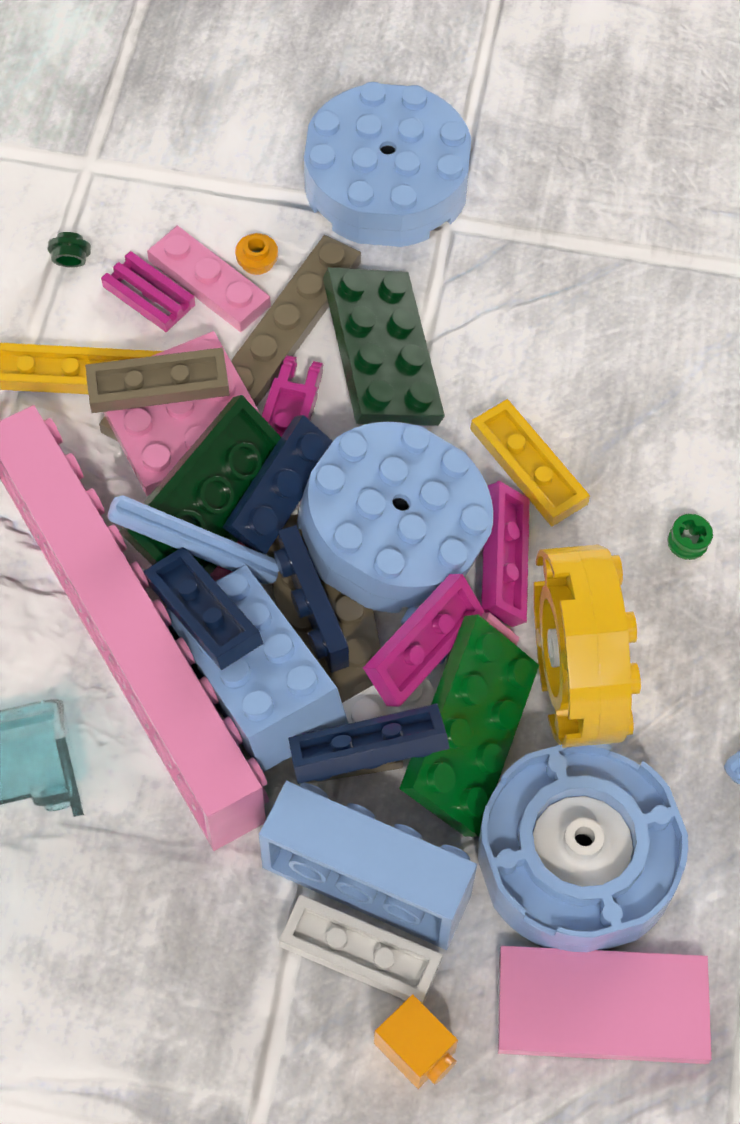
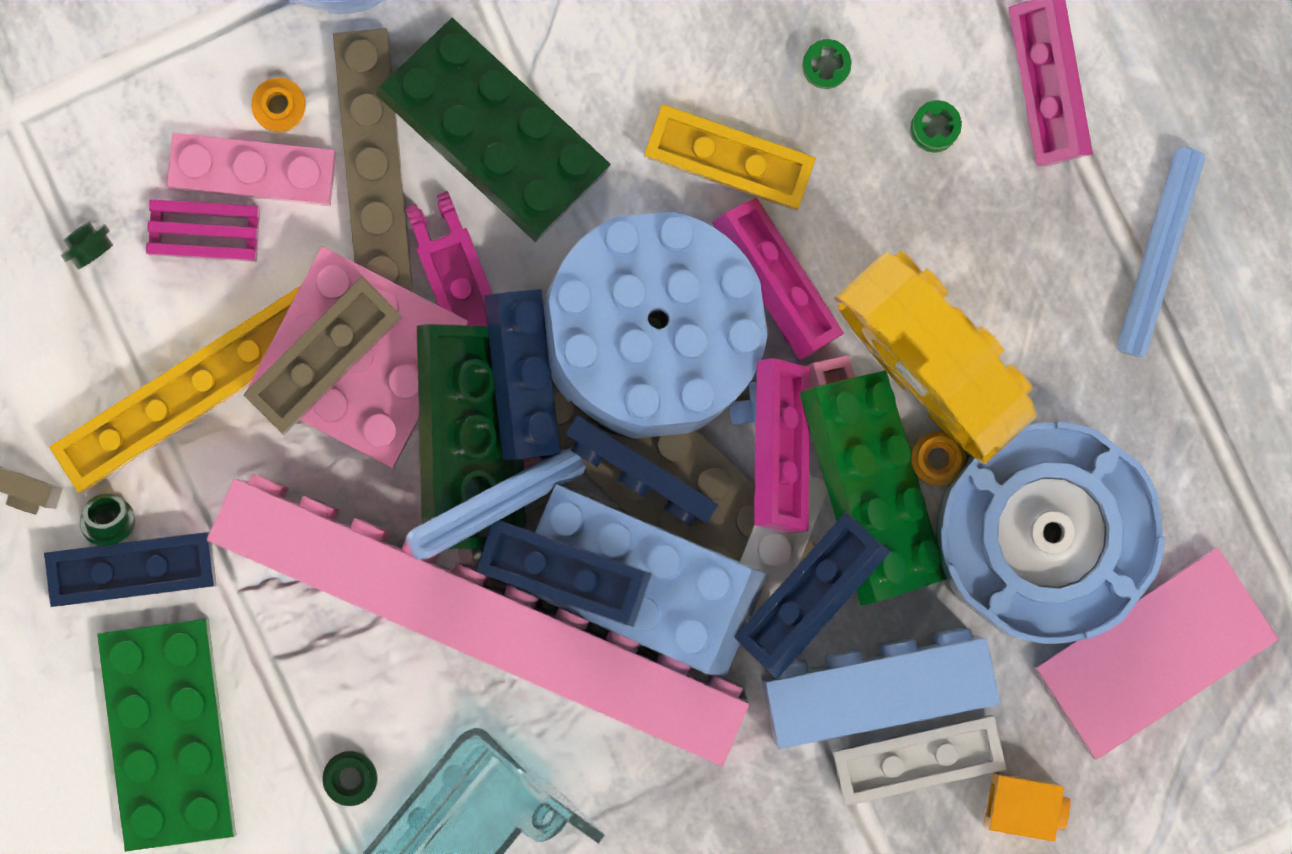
camera: 35 degrees left, 25 degrees up
(528, 736) = (921, 466): none -> light orange plate
(635, 441) = (814, 52): none -> green bush

